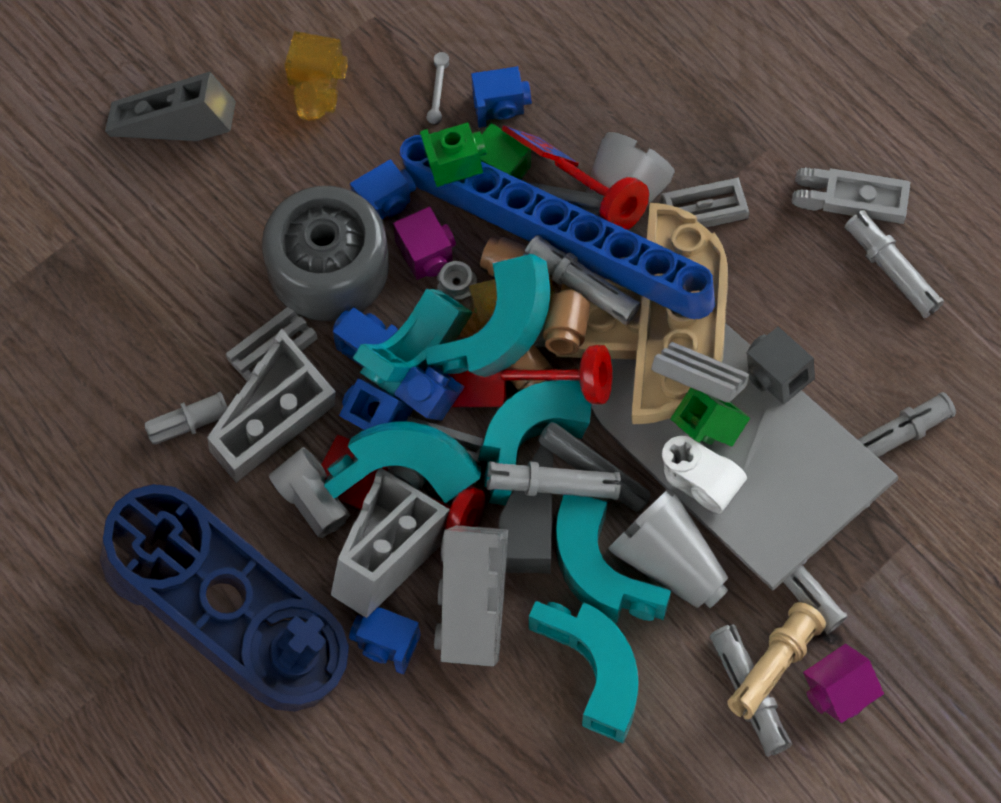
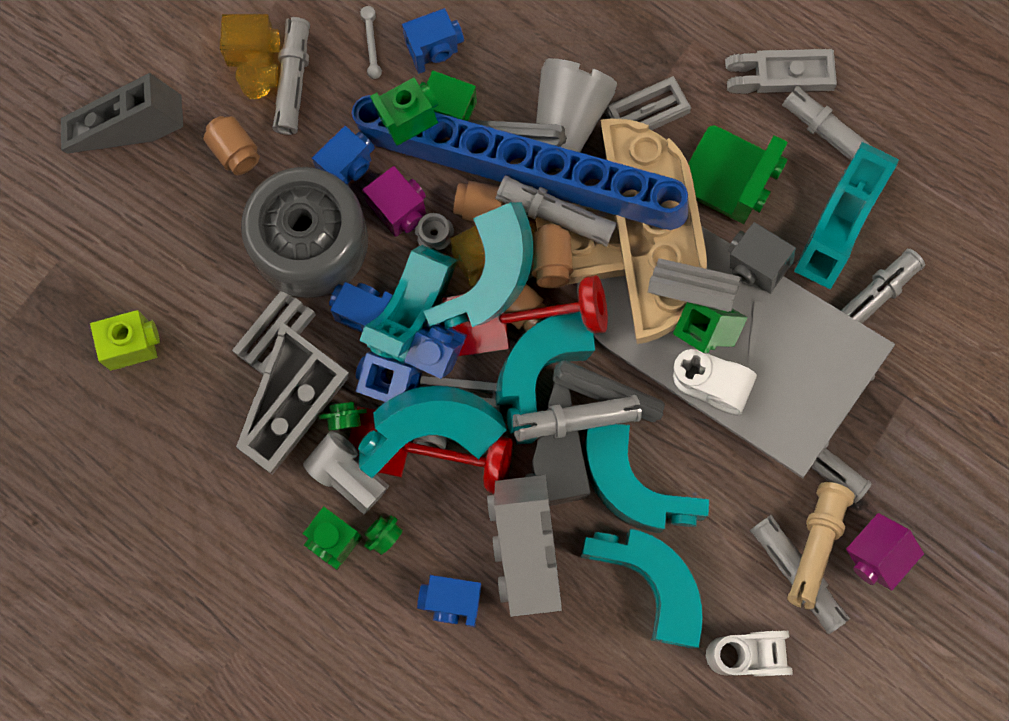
camera: 15 degrees left, 10 degrees up
(123, 322) = (125, 340): none -> lime brick
(186, 419) = (210, 423): light grey axle -> none
(241, 642) = (334, 648): dark blue beam -> none
(273, 158) = (231, 145): none -> medium nougat brick
(282, 546) = (331, 538): none -> green brick
(320, 438) = (343, 416): none -> green plate
(327, 560) = (382, 534): none -> green plate
(354, 91) = (293, 62): none -> light grey pin
(387, 543) = (433, 512): light grey wedge -> none
(622, 202) = (578, 128): red piece -> none
(672, 552) = (698, 458): light grey cone -> none
(683, 757) = (757, 654): none -> white piece
(776, 282) = (733, 172): none -> green bracket
(883, 345) = (845, 215): none -> teal arch

